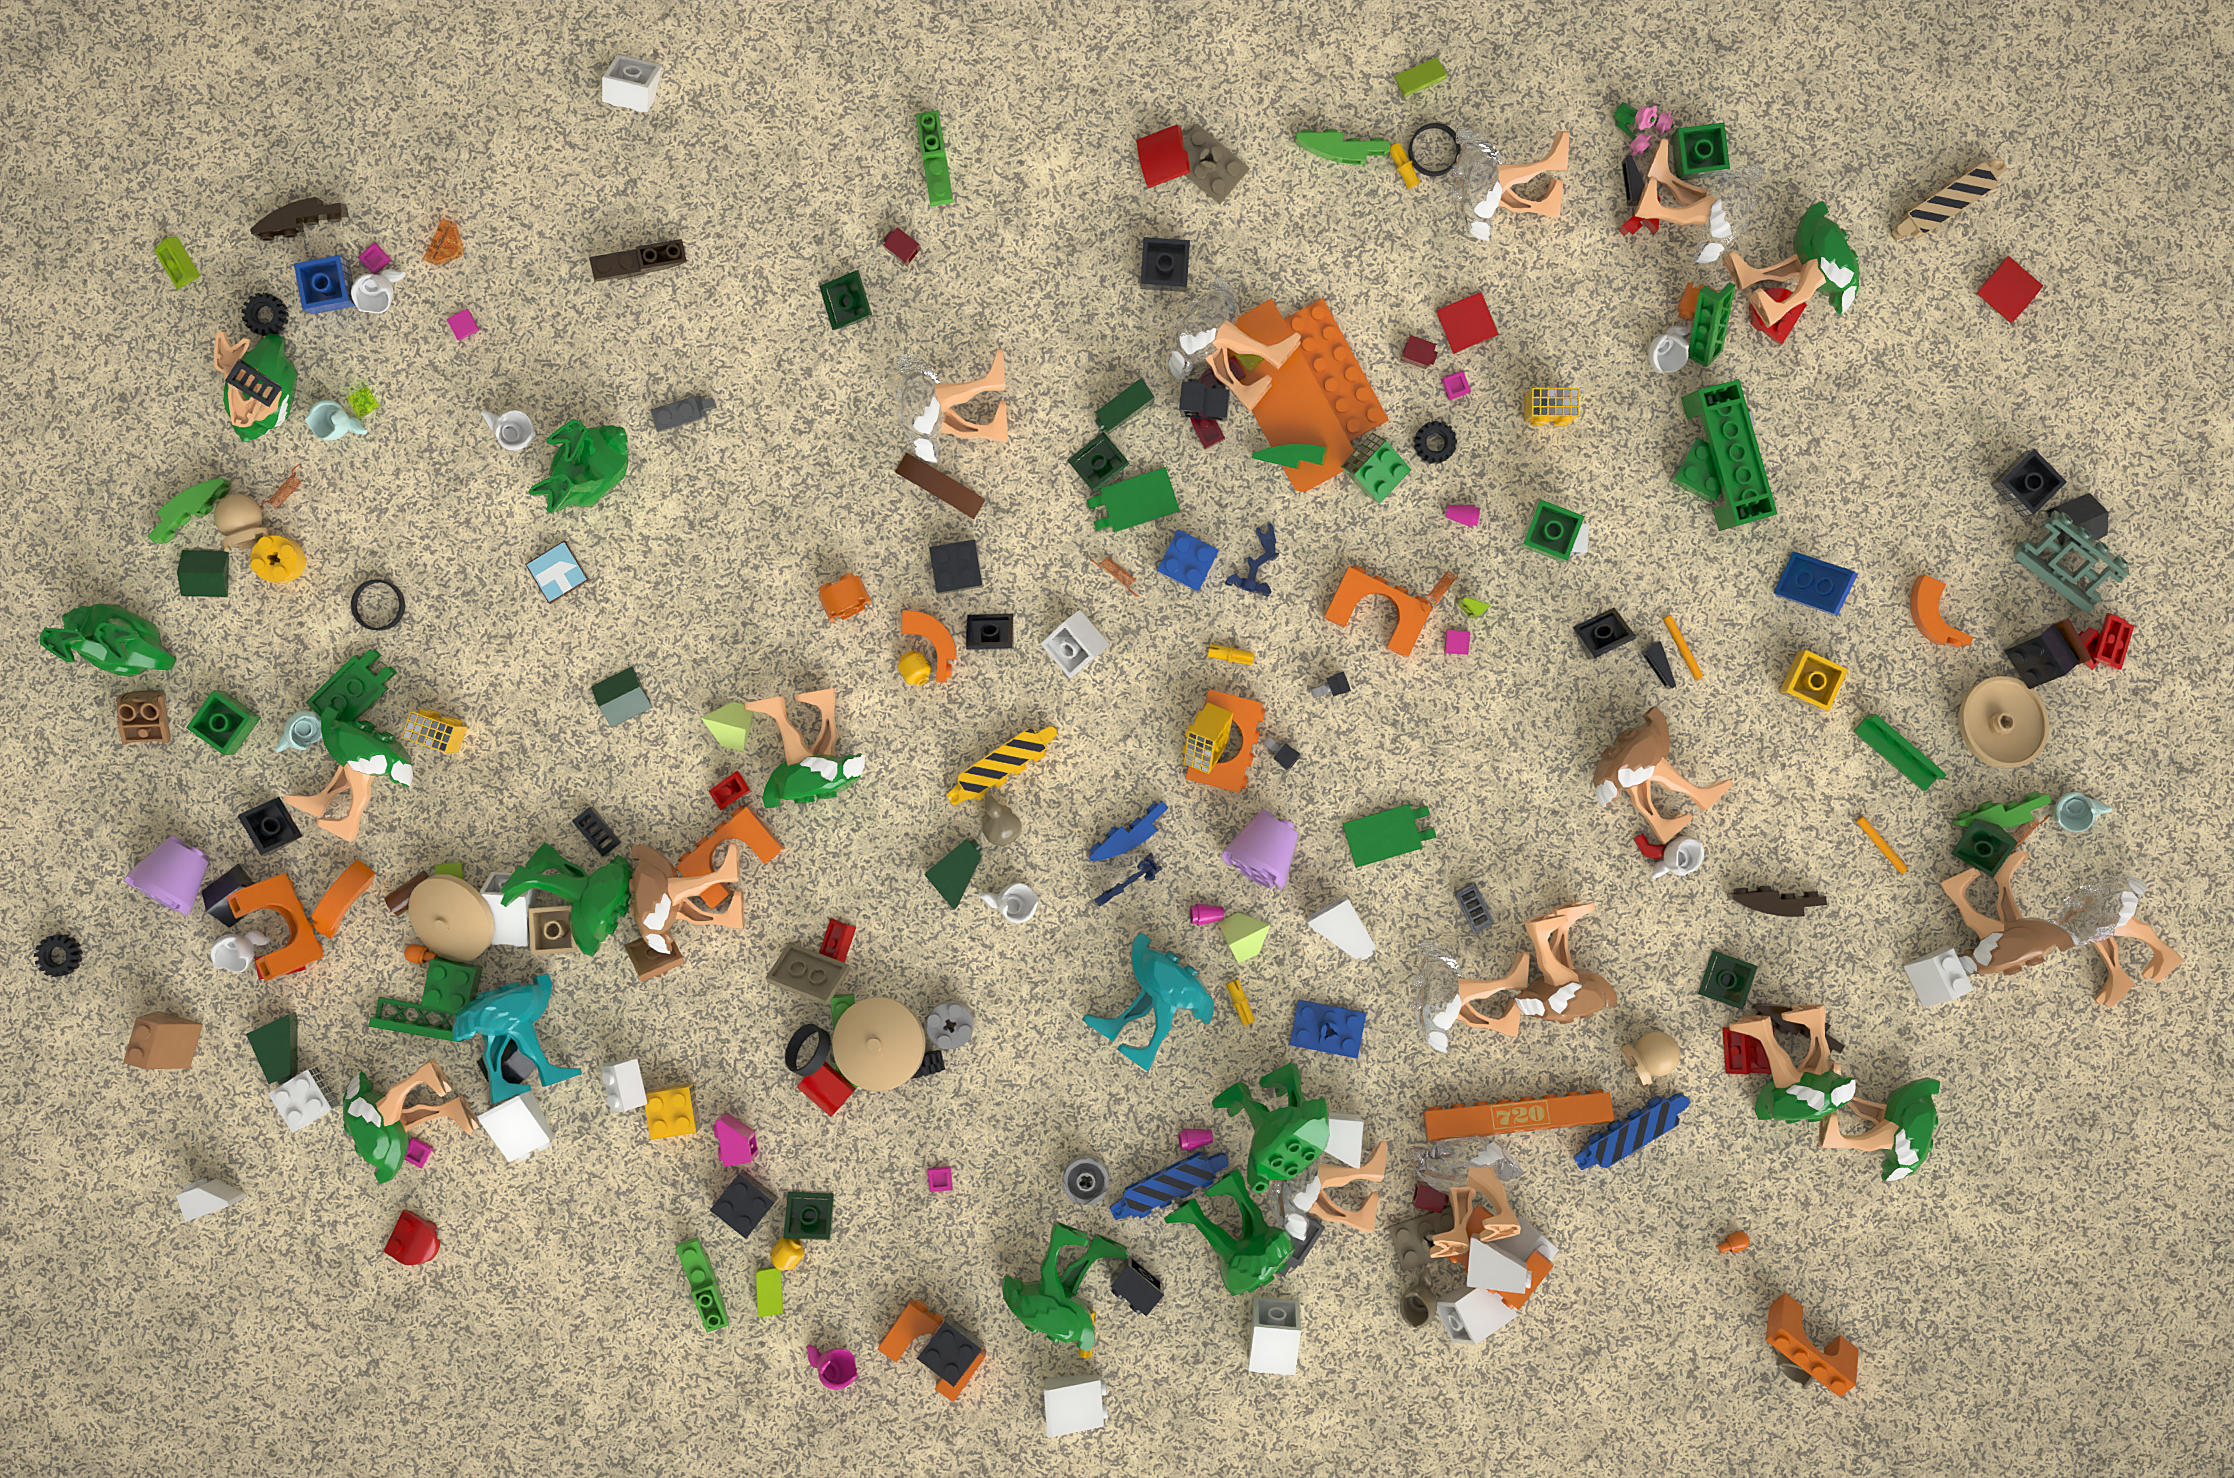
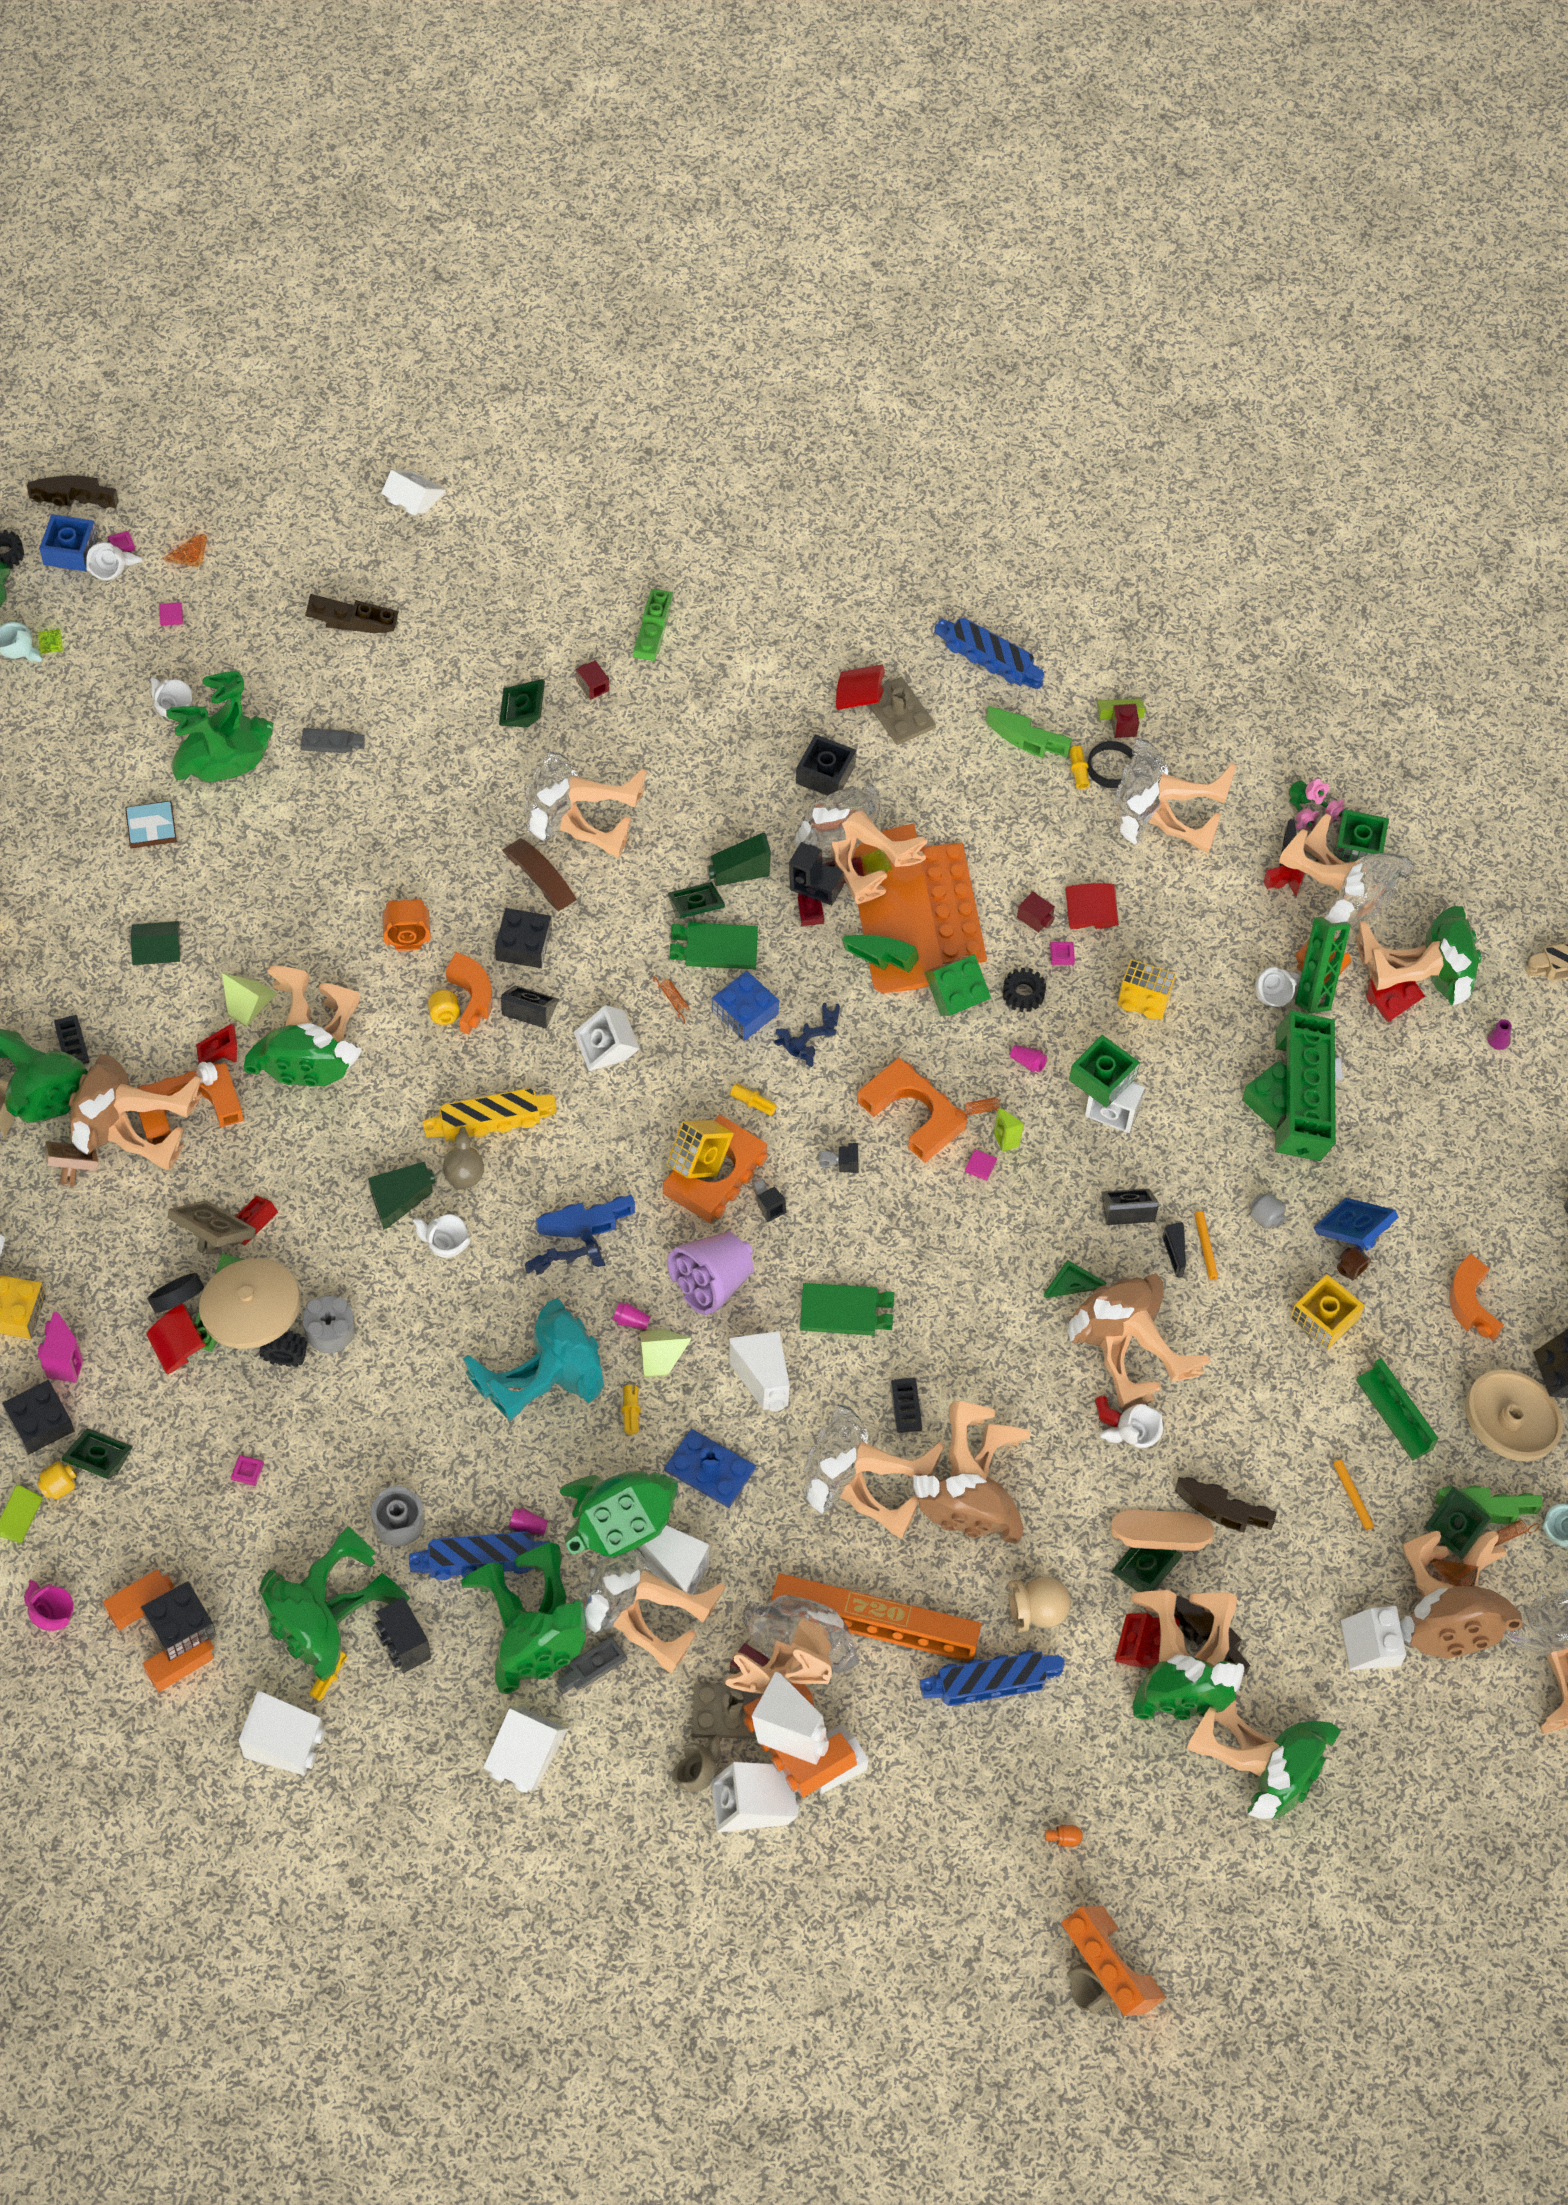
camera: 20 degrees right, 30 degrees down
(736, 830) = (207, 1073): none -> white plate
(1273, 60) = (991, 652): none -> blue hinge
(1431, 95) = (1125, 720): none -> dark red brick
(1575, 728) = (1072, 1280): none -> green tile
(1729, 593) = (1267, 1210): none -> light grey head
(1732, 945) = (1162, 1530): none -> light nougat tile
(1818, 621) = (1353, 1263): none -> reddish brown plate
(1884, 325) = (1500, 1035): none -> magenta cone
(1997, 898) = (1456, 1573): none -> clear orange slope

